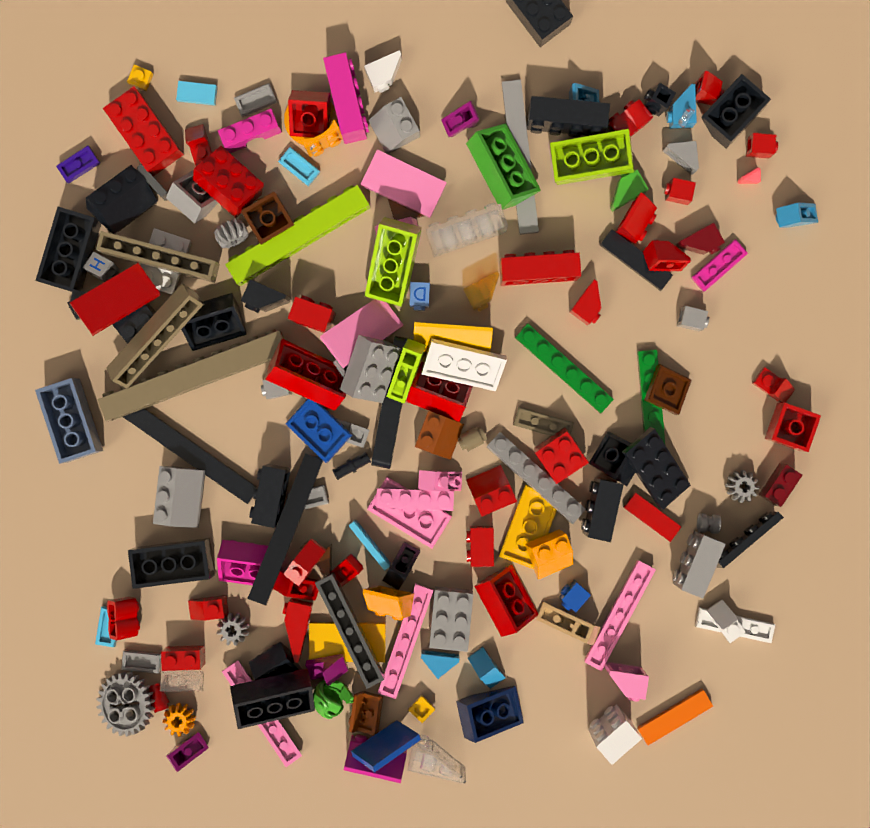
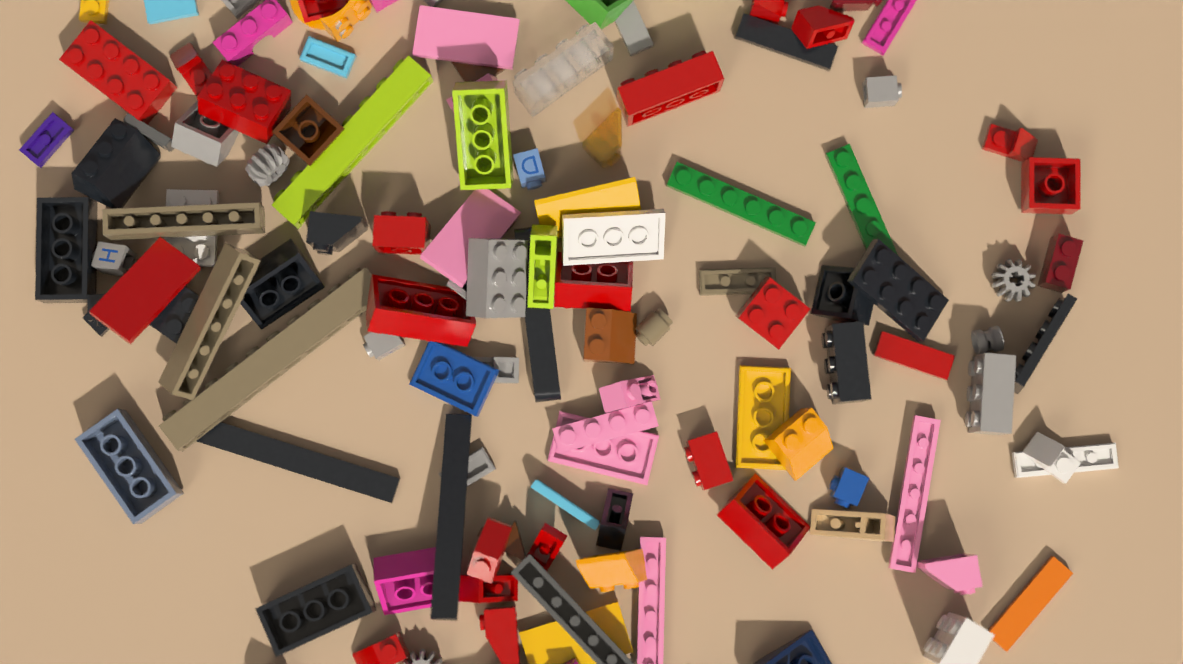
camera: 20 degrees left, 5 degrees down
(179, 496) = (300, 519): light grey slope -> none
(270, 495) = (417, 479): black brick -> none
(351, 465) = (510, 410): black pin -> none
(439, 662) = (703, 629): dark azure slope -> none
(451, 619) = (700, 567): light grey brick -> none
(486, 668) = (766, 617): dark azure slope -> none
(491, 490) = (698, 386): red slope -> none
(536, 478) = (750, 352): light grey plate -> none
(588, 305) = (745, 115): red slope -> none
(668, 389) = (879, 188): reddish brown tile -> none

